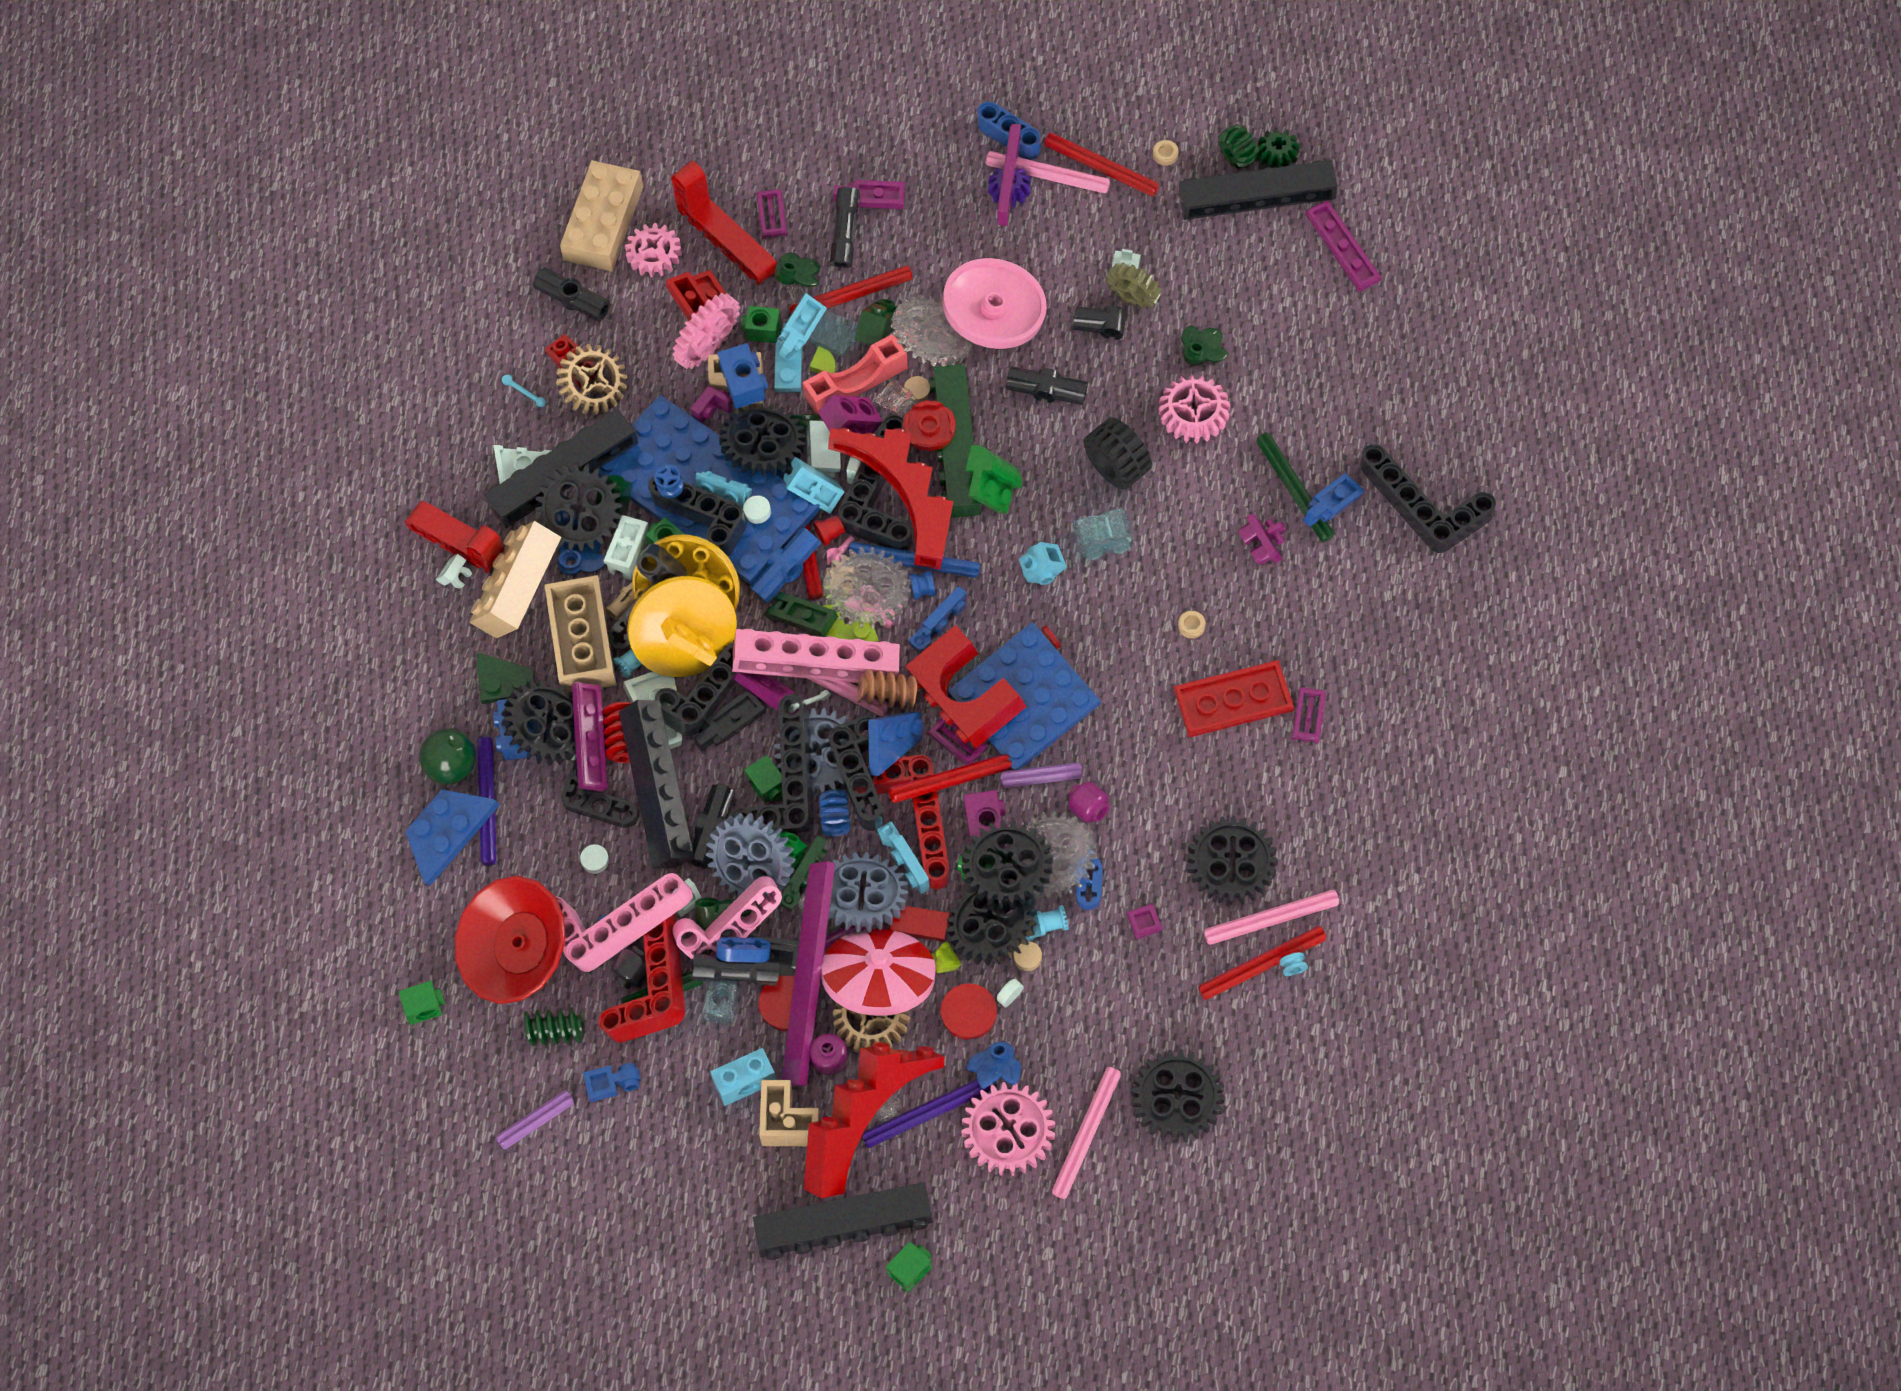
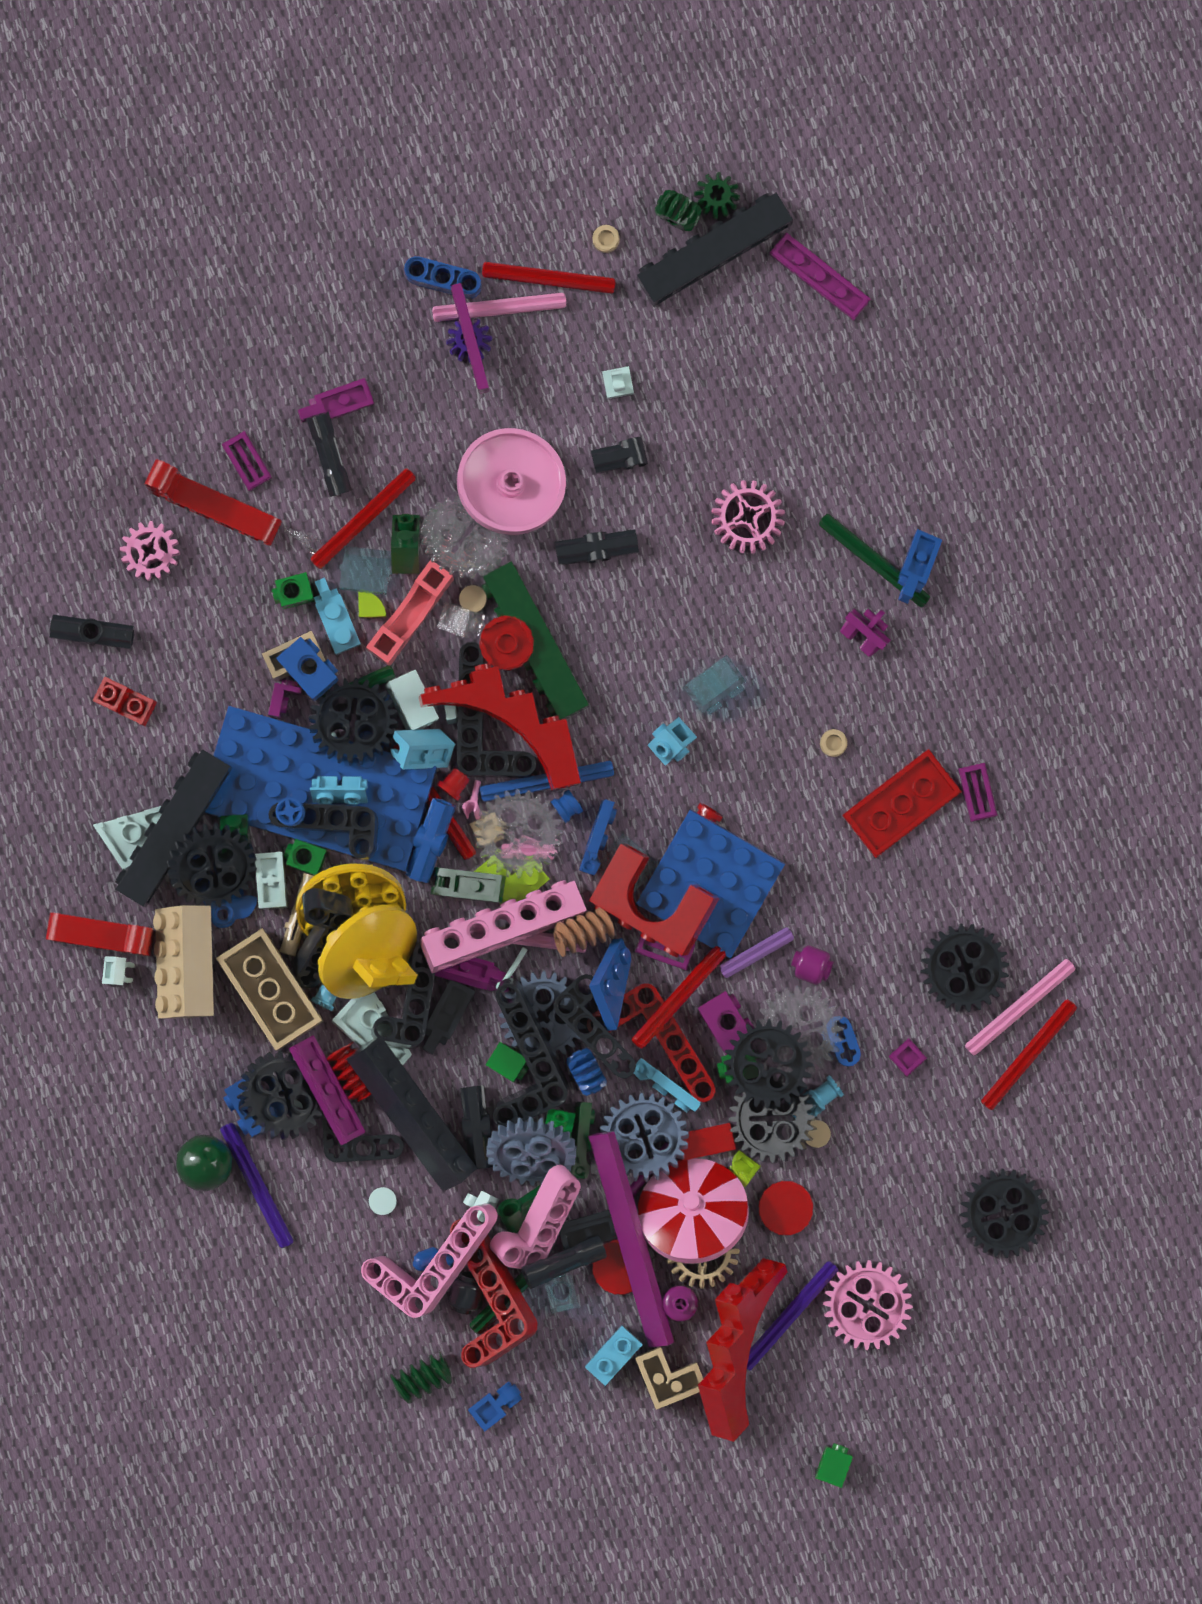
camera: 25 degrees left, 20 degrees up
(422, 1002) = (291, 1403): green brick -> none
(445, 830) = (233, 1231): blue wing -> none
(491, 934) = (331, 1332): red dish -> none
(500, 678) = (215, 1059): dark green wing -> none
(507, 380) = (70, 746): medium azure hinge -> none
(534, 1119) = (443, 1467): medium lavender axle -> none
(600, 383) = (157, 730): tan gear -> none
(601, 215) = (82, 534): tan brick -> none
(693, 291) = (222, 587): red brick -> none
(706, 330) = (249, 630): bright pink gear -> none
(743, 949) = (565, 1243): blue beam -> none
(757, 509) = (381, 798): light aqua tile -> none
(793, 269) = (304, 514): dark green plate -> none
(800, 324) = (334, 581): medium azure hinge -> none
(842, 1220) = (758, 1448): black brick -> none
(850, 413) = (425, 662): magenta brick -> none
(992, 479) = (590, 671): green brick -> none
(992, 1066) = (833, 1254): blue plate -> none
(1009, 992) = (816, 1177): light aqua tile -> none
(1086, 1133) = (936, 1278): bright pink axle -> none
(1117, 453) = (698, 601): black tyre -> none
(1133, 285) = (639, 410): olive gear -> none
(1202, 345) = (729, 438): dark green plate -> none
(1293, 964) = (1058, 1046): medium azure bush -> none
(1422, 506) = (999, 534): black beam -> none

